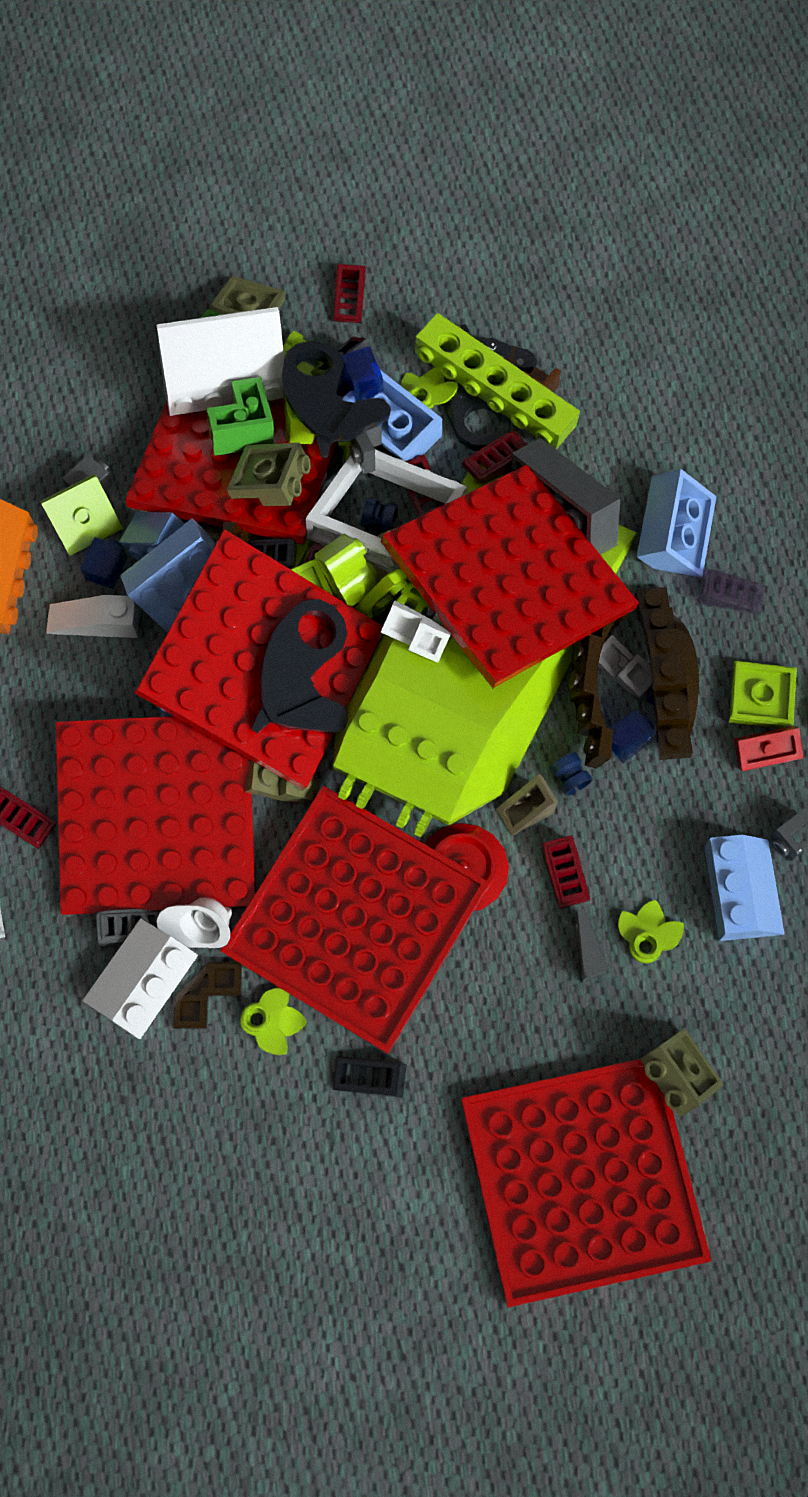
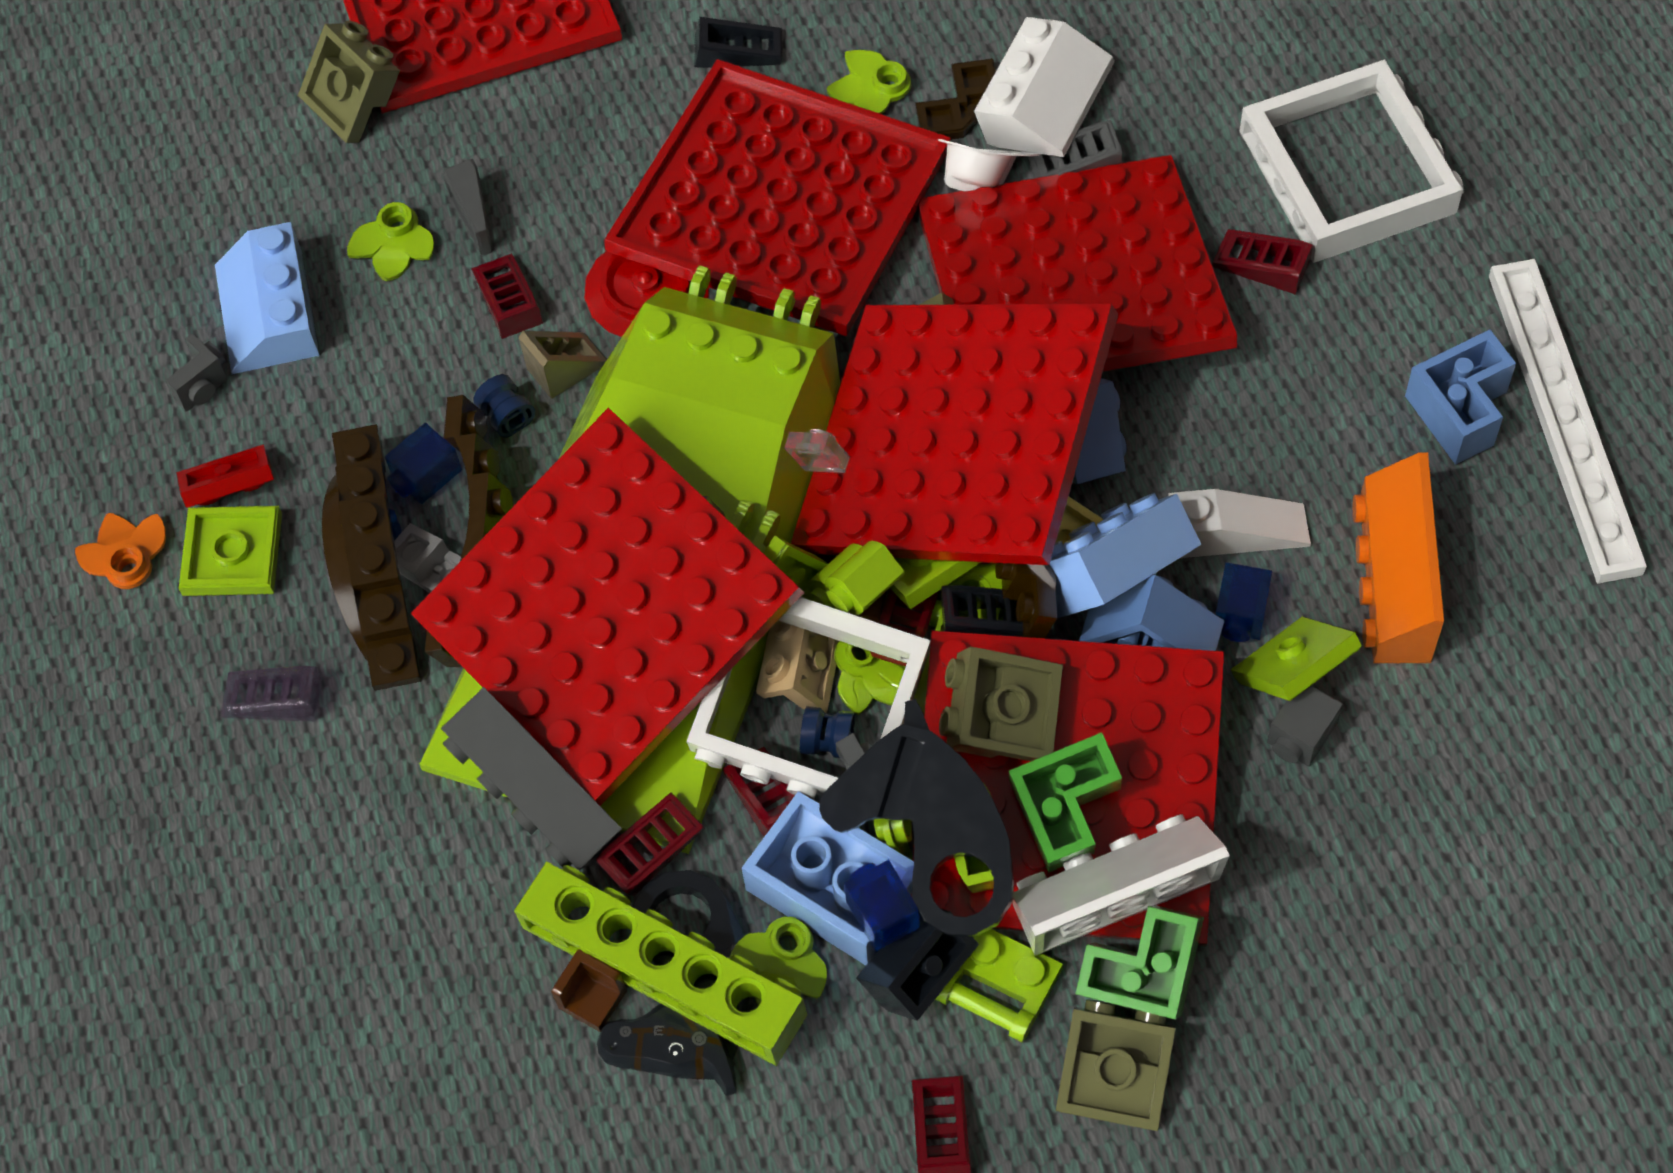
camera: 175 degrees right, 10 degrees down
(287, 670) = (911, 386): black animal -> none
(357, 664) = (817, 451): none -> clear plate
(416, 630) = (725, 482): white slope -> none
(676, 524) = (357, 778): light blue slope -> none

